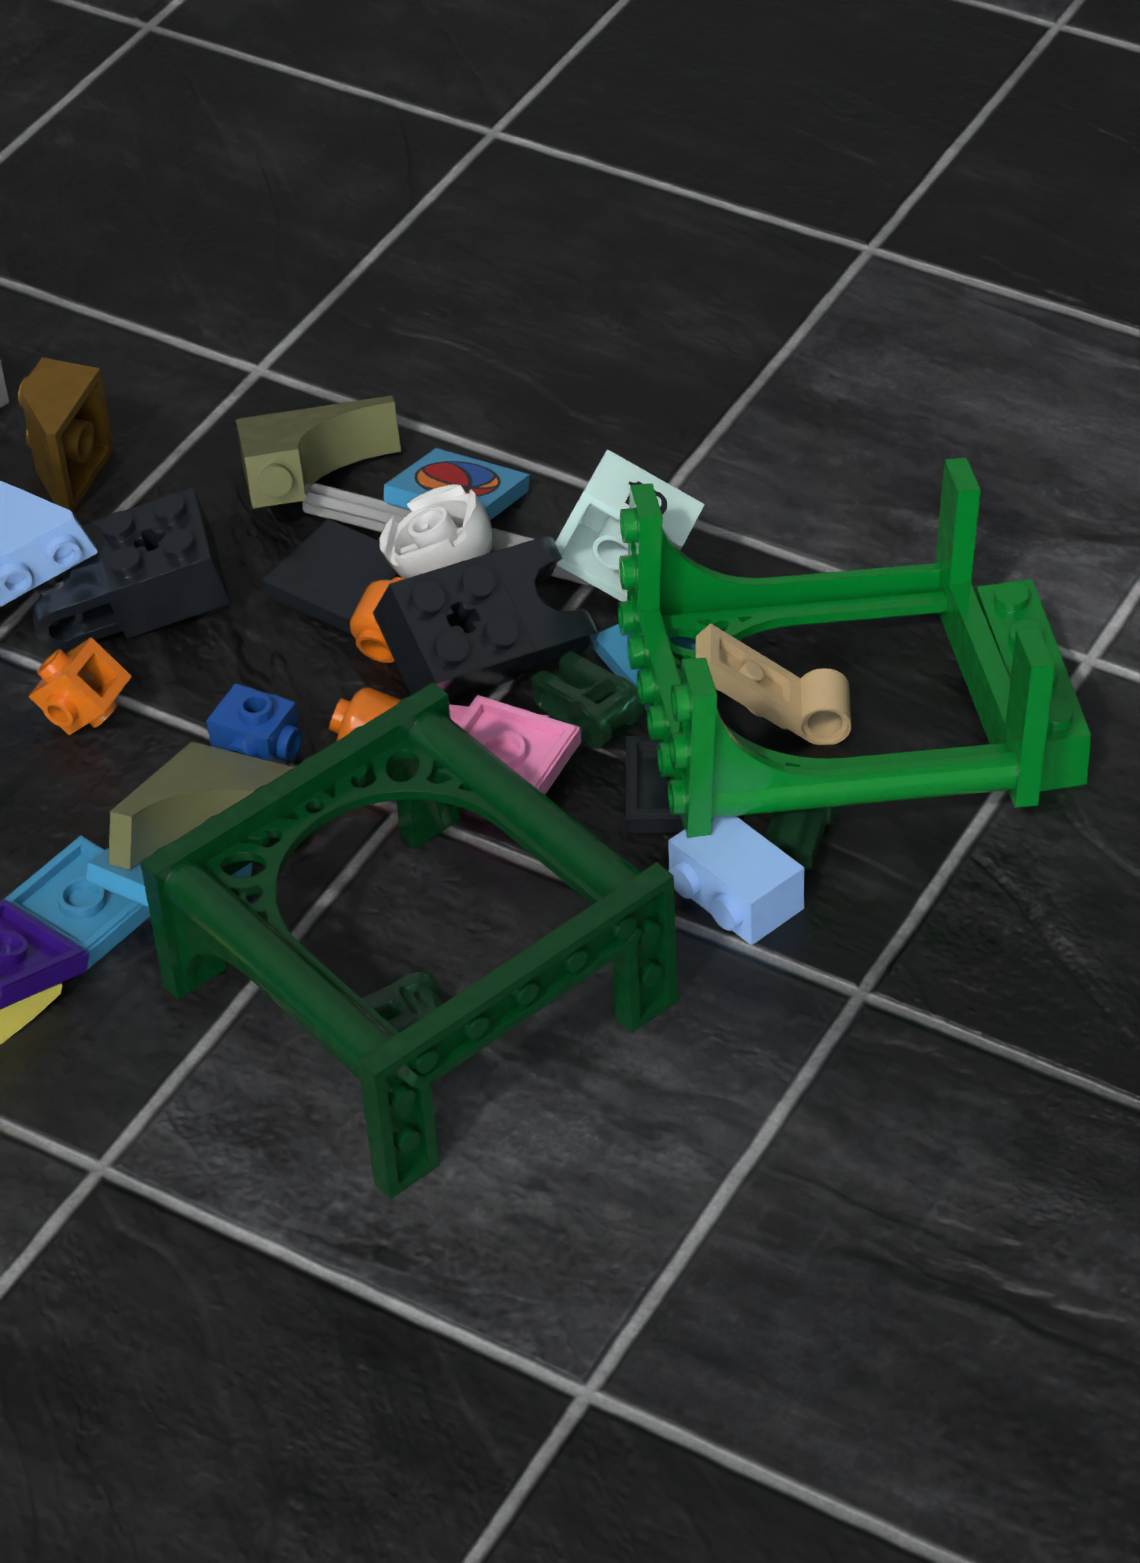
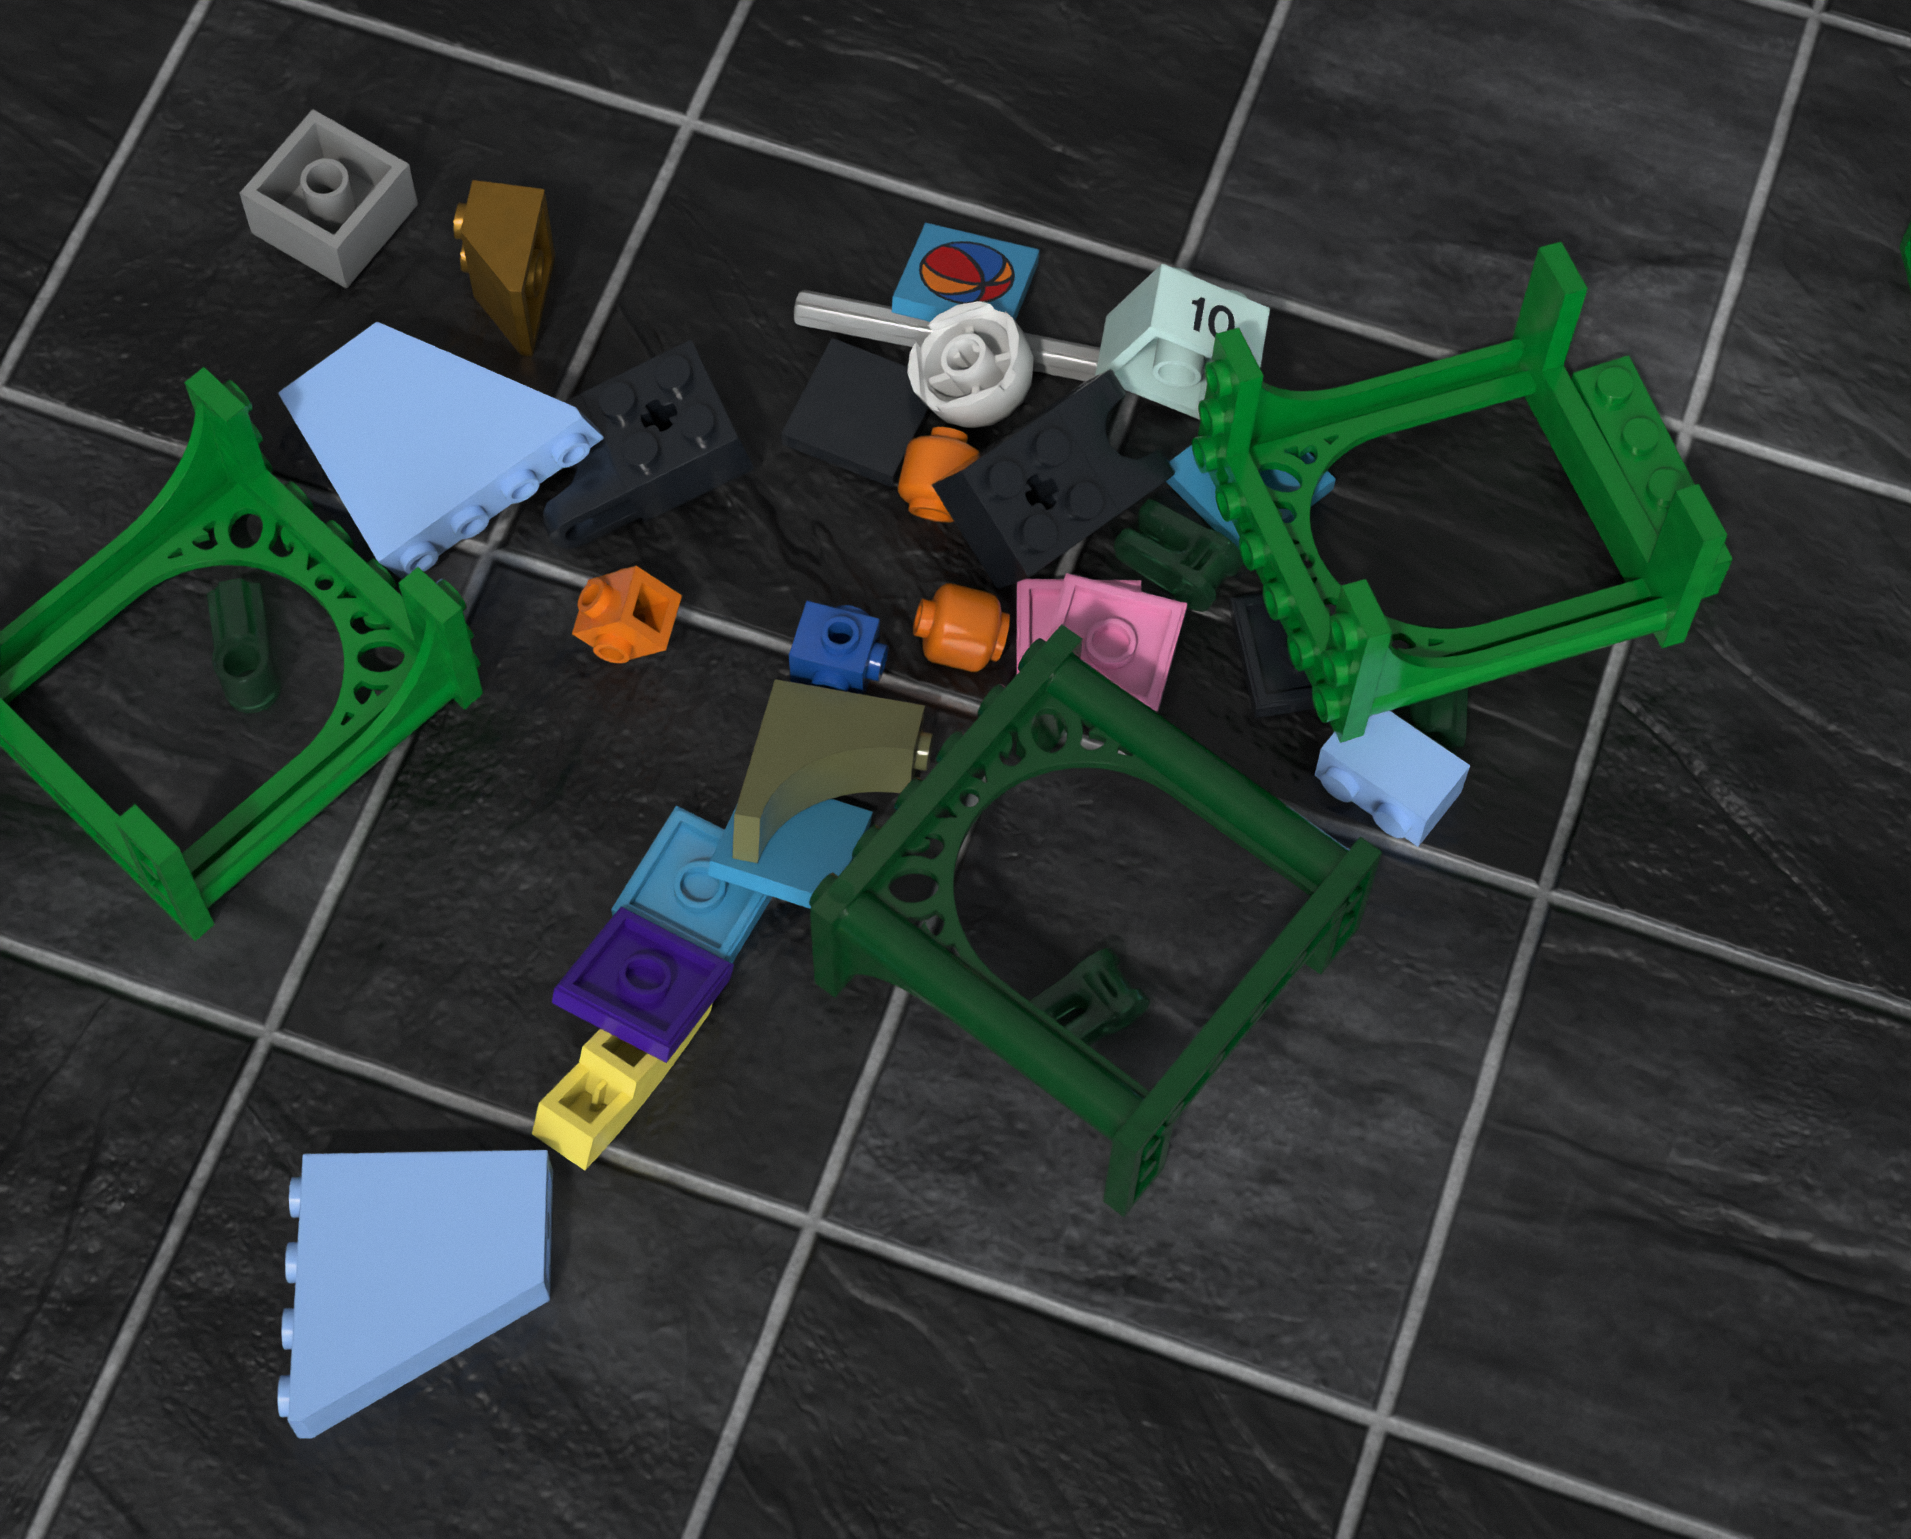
camera: 15 degrees left, 20 degrees up
(297, 447) = (775, 245): olive arch -> none
(808, 706) = (1409, 537): tan plate -> none

